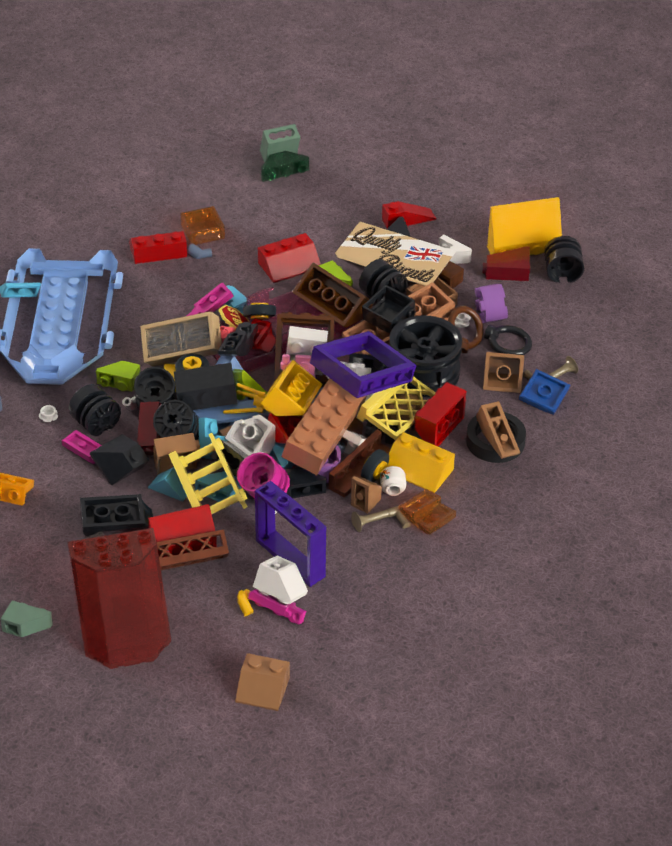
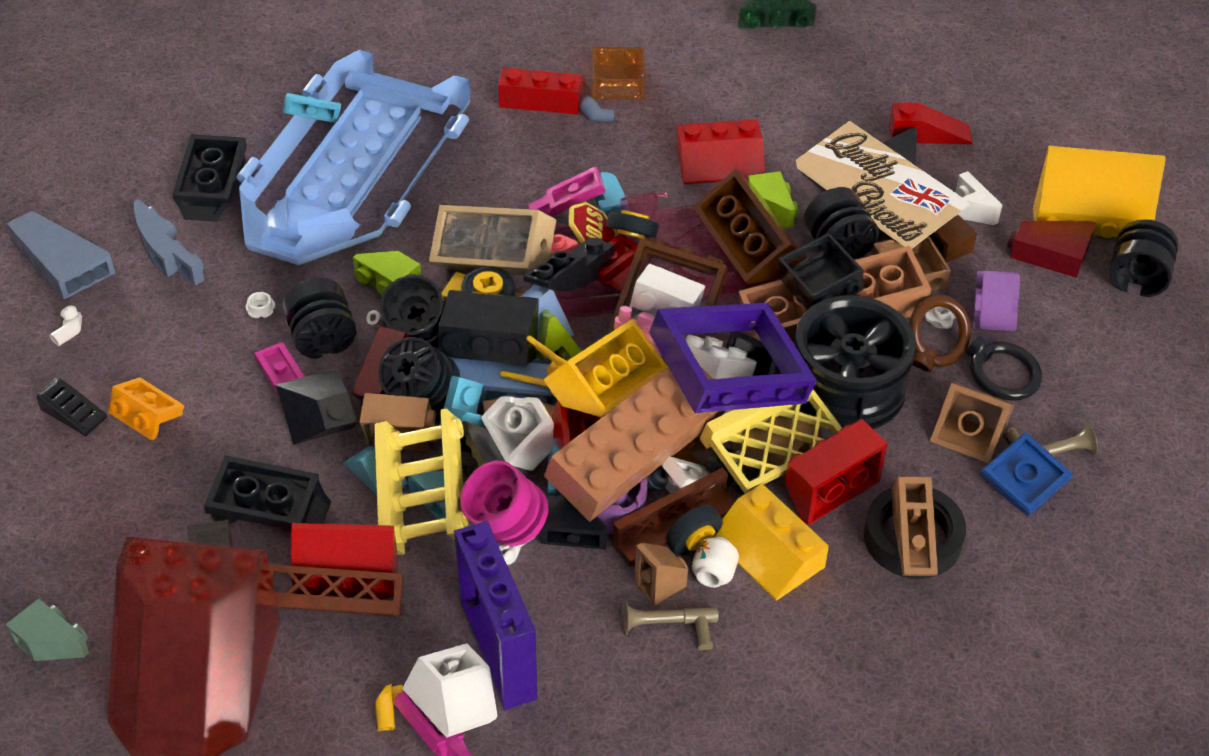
camera: 20 degrees right, 5 degrees up
(427, 511) = (747, 632): clear orange slope -> none

